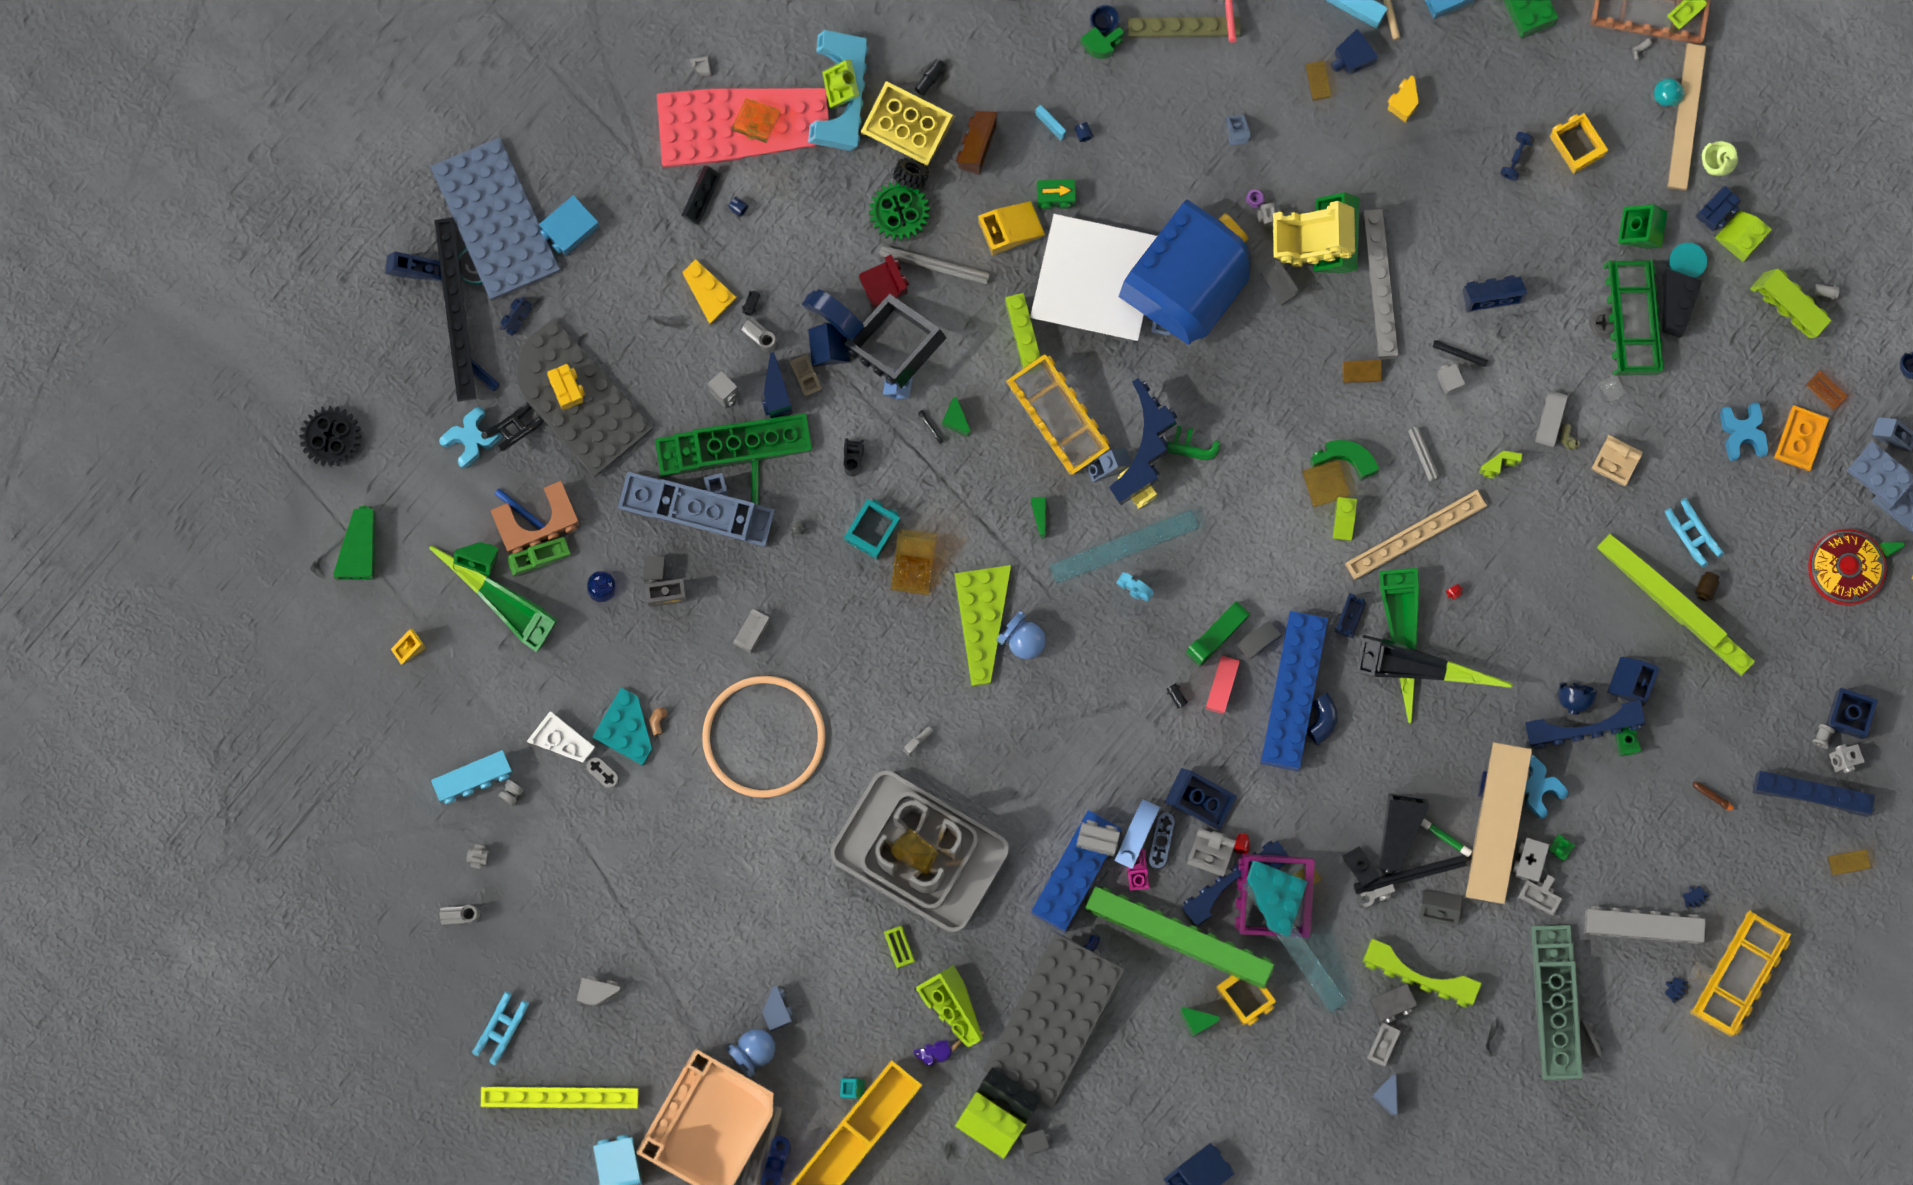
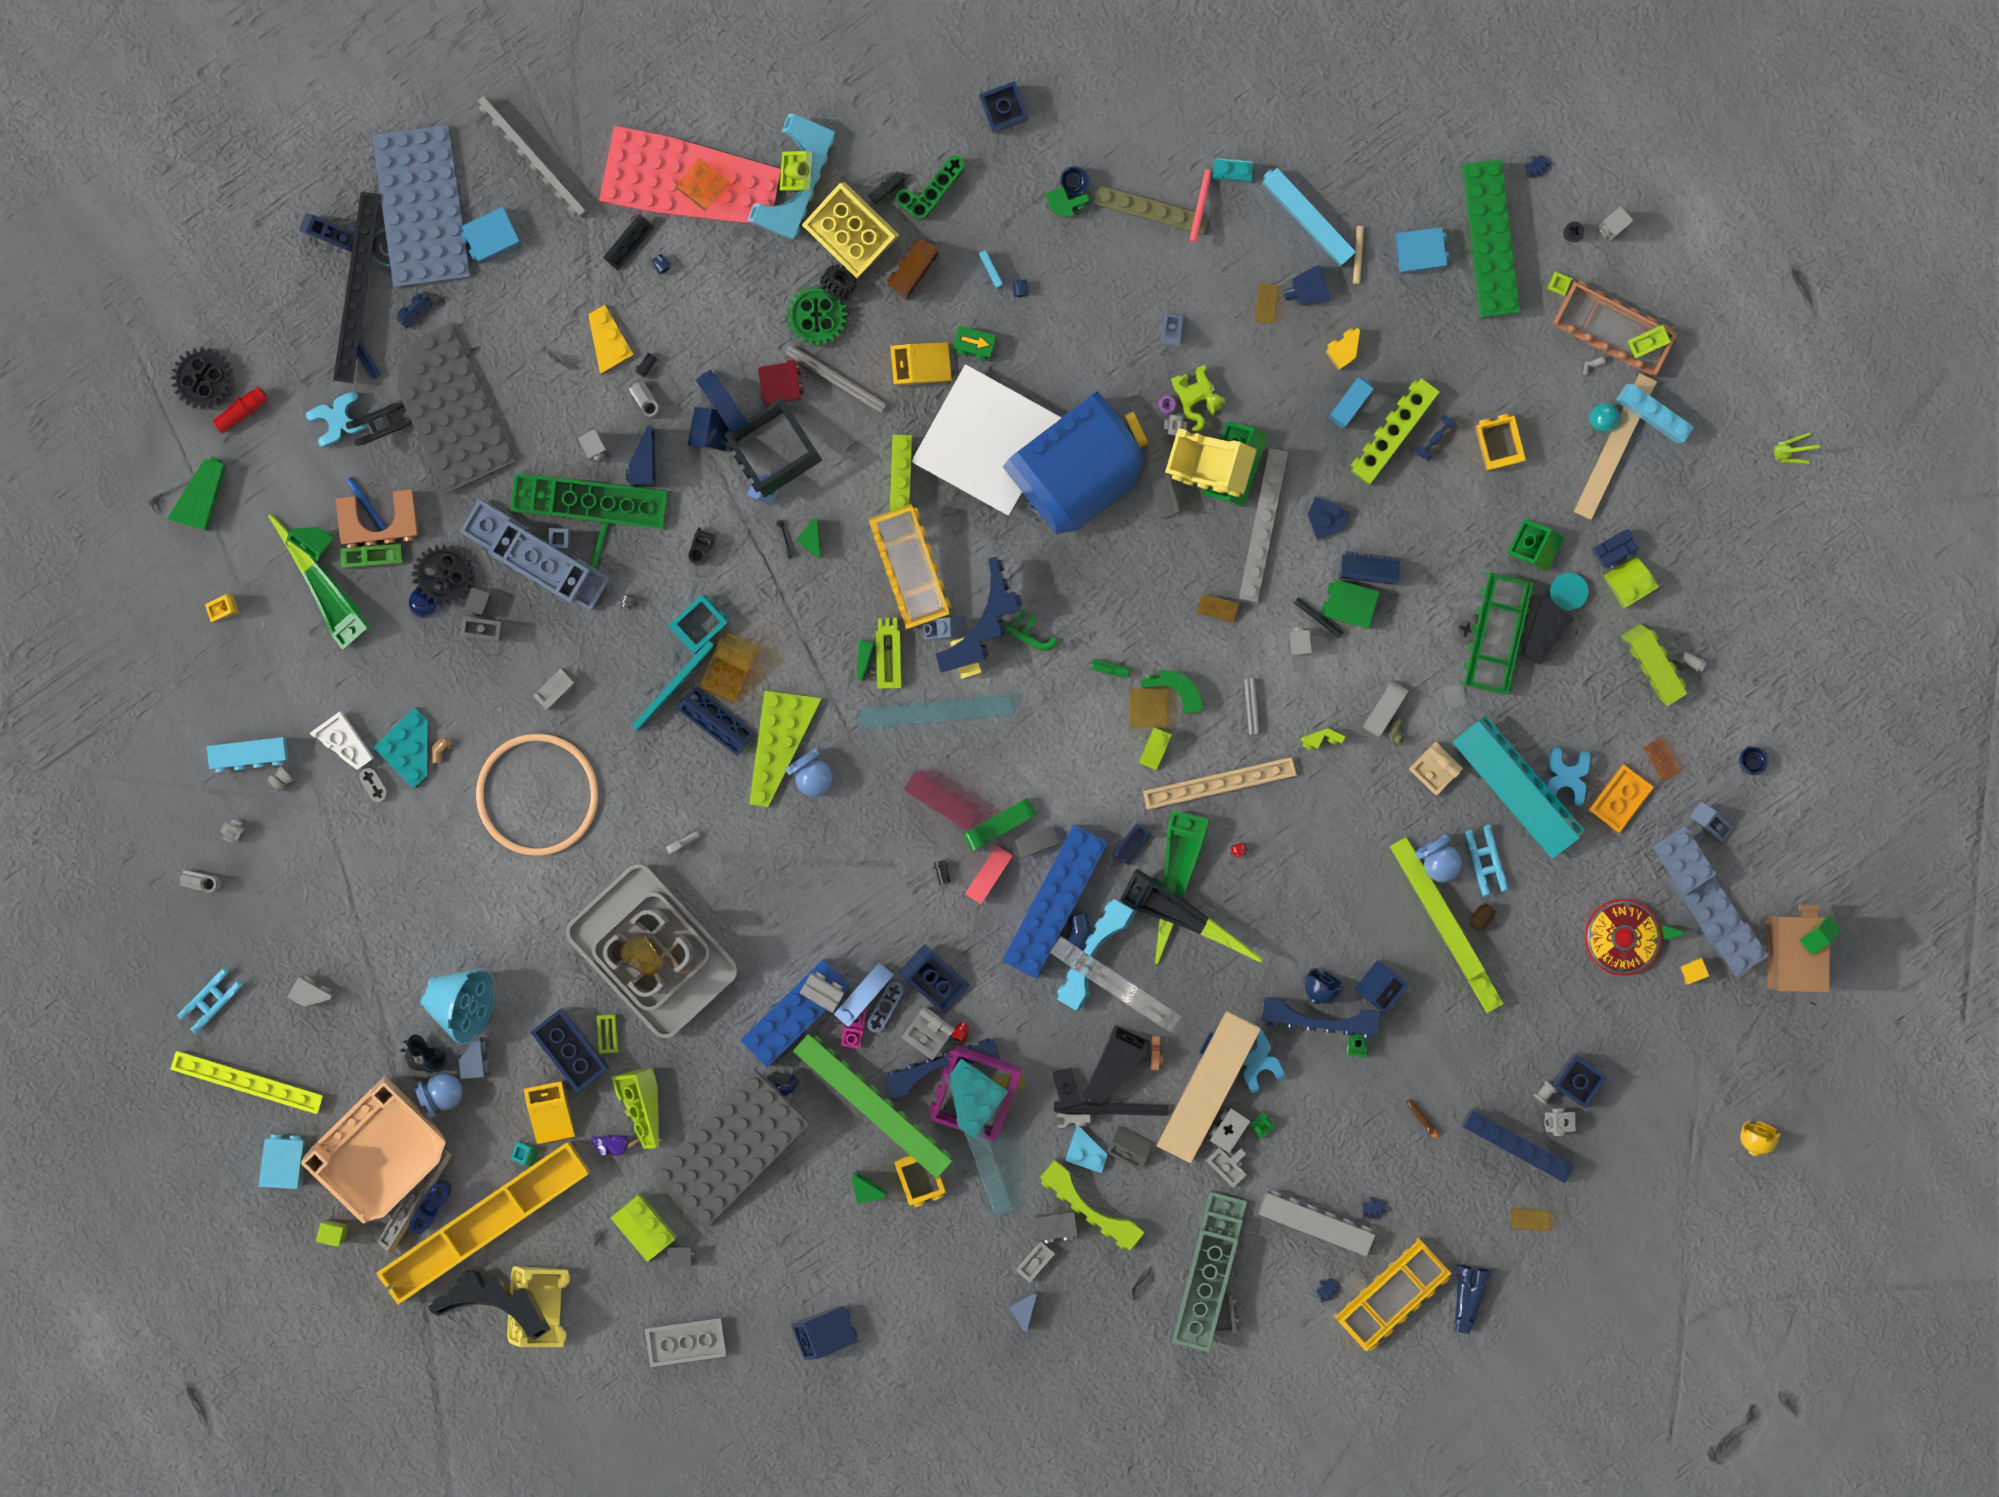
camera: 15 degrees right, 10 degrees up
(375, 454) = (241, 409): none -> red piece
(565, 386) = (441, 398): yellow brick -> none
(593, 148) = (537, 165): none -> light grey plate
(601, 563) = (458, 568): none -> black gear
(701, 65) = (666, 109): light grey tile -> none
(722, 1021) = (420, 1056): none -> black helmet
(748, 954) = (460, 1002): none -> medium azure cone
(805, 375) = (678, 452): dark tan slope -> none
(865, 593) = (674, 684): none -> teal tile
(865, 1038) = (549, 1111): none -> yellow slope
(867, 971) = (569, 1050): none -> dark blue brick
(914, 618) = (713, 723): none -> dark blue fence
(973, 63) = (934, 186): none -> green beam
(1000, 1086) = (677, 1214): black arch -> none
(1065, 512) = (888, 660): none -> lime hinge
(1137, 588) = (932, 757): medium azure plate -> none
(1156, 627) = (942, 800): none -> clear pink brick
(1277, 457) = (1110, 668): none -> green axle
(1279, 179) = (1195, 393): none -> lime animal
(1358, 690) = (1116, 918): none -> medium azure arch
(1381, 747) = (1117, 985): none -> clear piece
(1399, 924) = (1085, 1151): none -> medium azure wing
(1427, 145) = (1351, 402): none -> dark azure window
(1438, 258) = (1326, 518): none -> dark blue plate
(1439, 812) = (1156, 1057): none -> nougat plate
(1445, 837) = (1156, 1083): green bar -> none
(1463, 206) = (1427, 394): none -> lime brick
(1486, 330) = (1350, 603): none -> green brick
(1650, 543) = (1440, 860): none -> medium blue tile
(1701, 452) = (1518, 788): none -> teal tile
(1714, 73) = (1654, 413): none -> medium azure brick
(1719, 158) = (1629, 500): yellowish green piece -> none
(1815, 954) = (1469, 1296): none -> dark blue piece
(1843, 75) = (1783, 450): none -> lime plant

